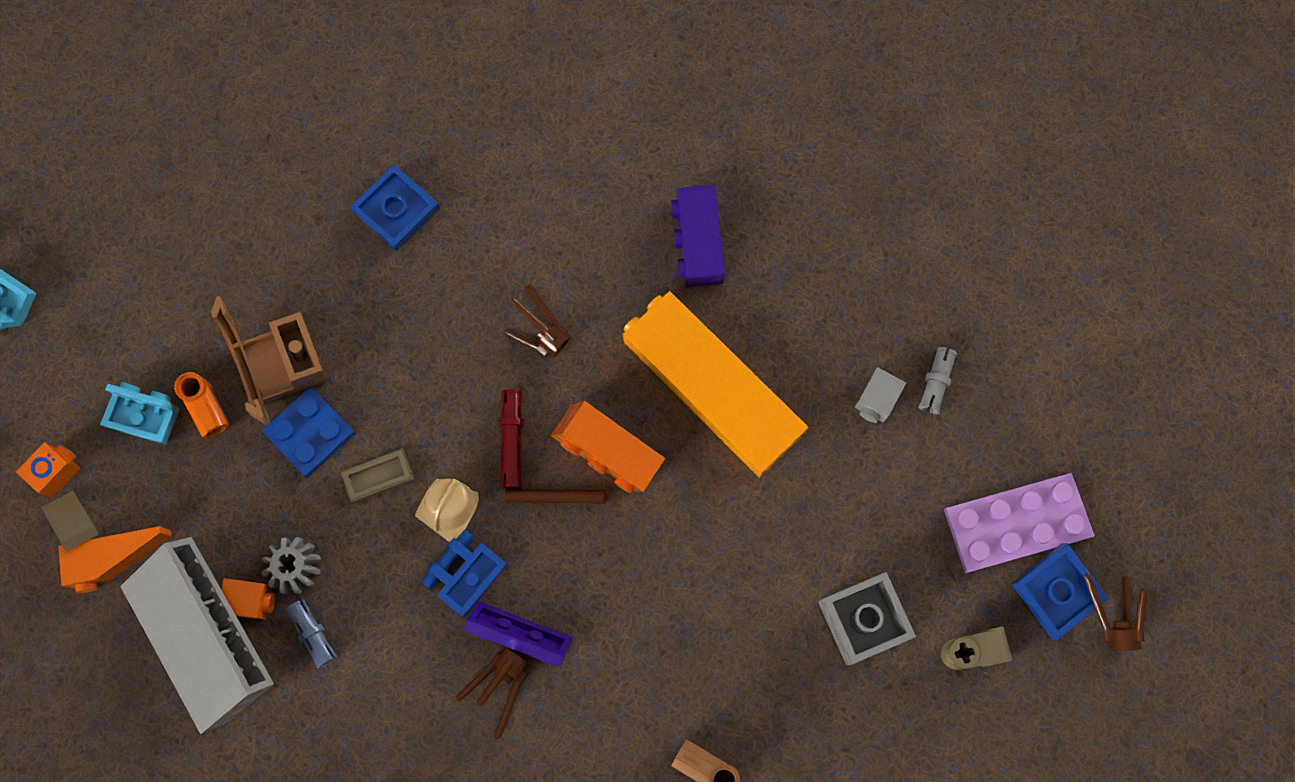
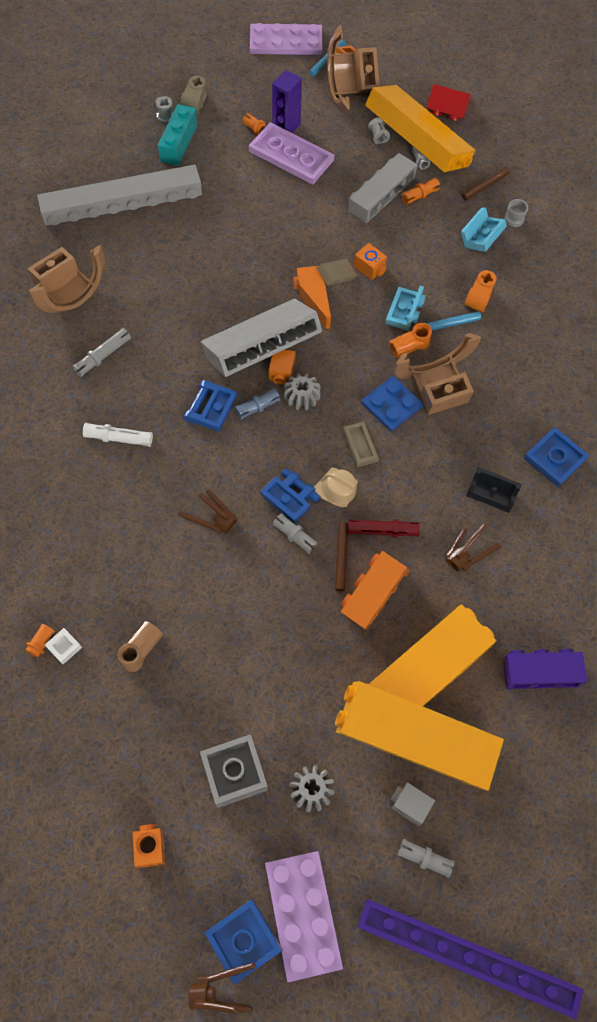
camera: 90 degrees right, 10 degrees down
(115, 301) = (481, 291): none -> orange piece
(164, 345) = (455, 321): none -> dark azure piece
(318, 696) = (216, 408): none -> blue plate
(449, 291) = (493, 490): none -> black hinge
(518, 634) = (245, 526): dark purple plate -> none
(524, 562) = (295, 533): none -> light grey pin
(803, 388) = (419, 735): none -> light orange brick
(865, 509) = (319, 784): none -> light grey gear
(981, 649) = (203, 867): dark tan piece -> none
(983, 722) = (154, 858): none -> orange brick
(1039, 335) = (471, 959): none -> dark purple plate

